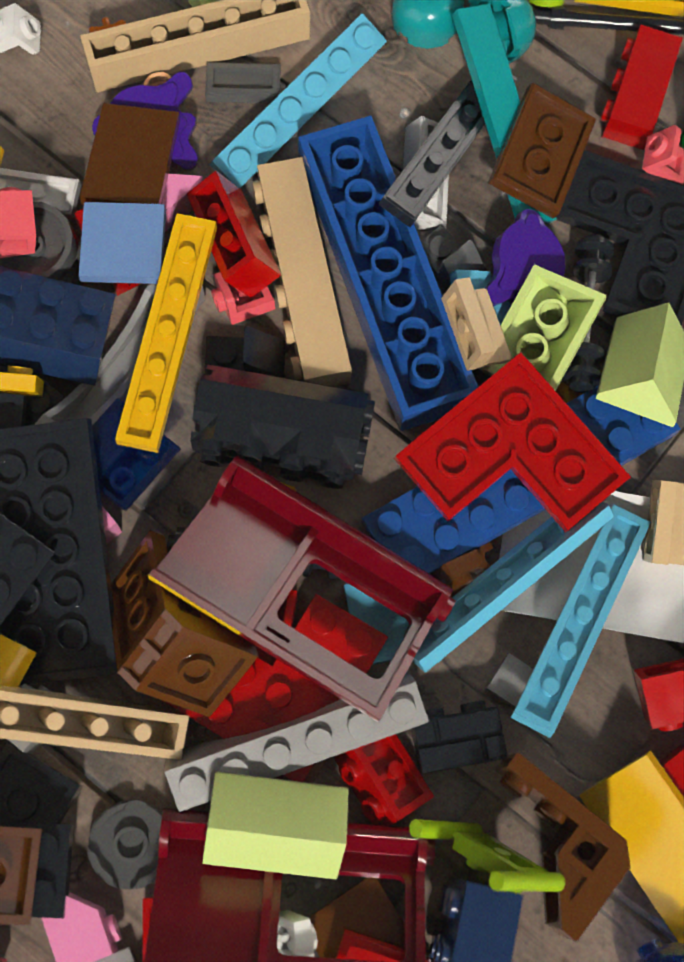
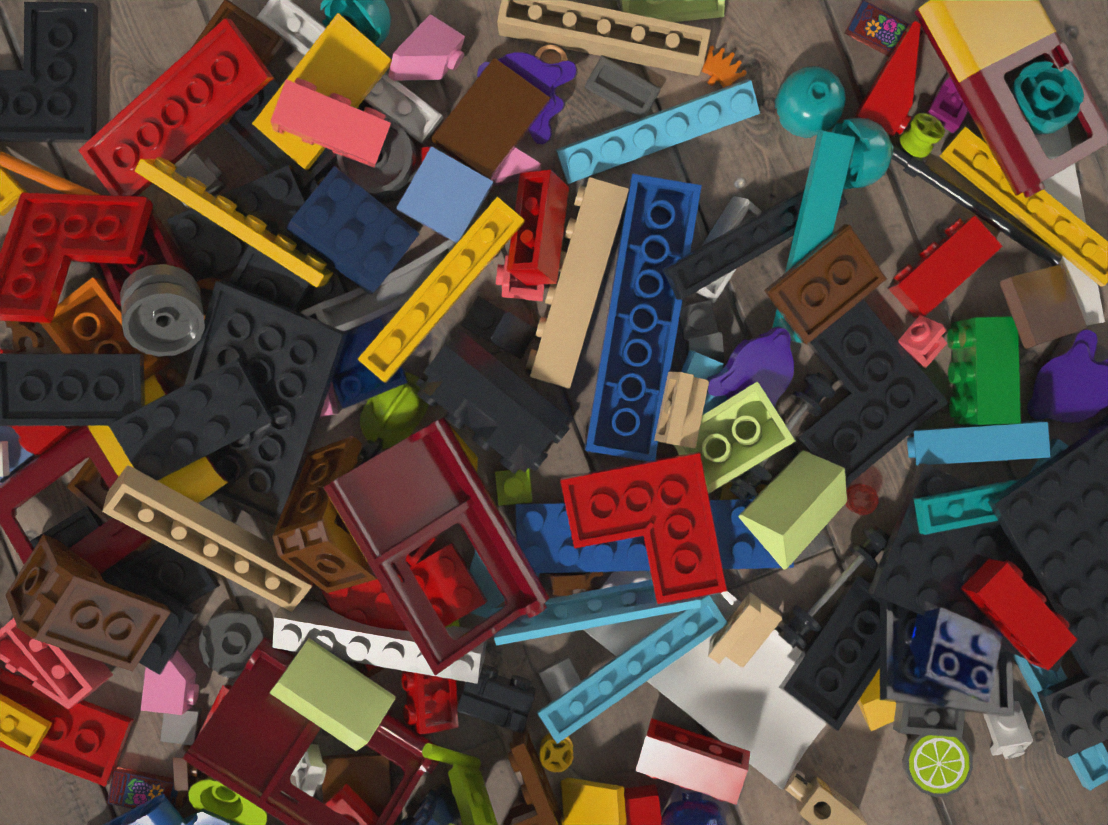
camera: 40 degrees right, 15 degrees up
(34, 132) = (427, 52): none -> bright pink slope
(178, 493) = (393, 413): none -> lime piece
(328, 24) = (720, 69): none -> orange piece
(349, 503) = (513, 487): none -> lime plate
(563, 764) = (559, 758): none -> yellow wheel

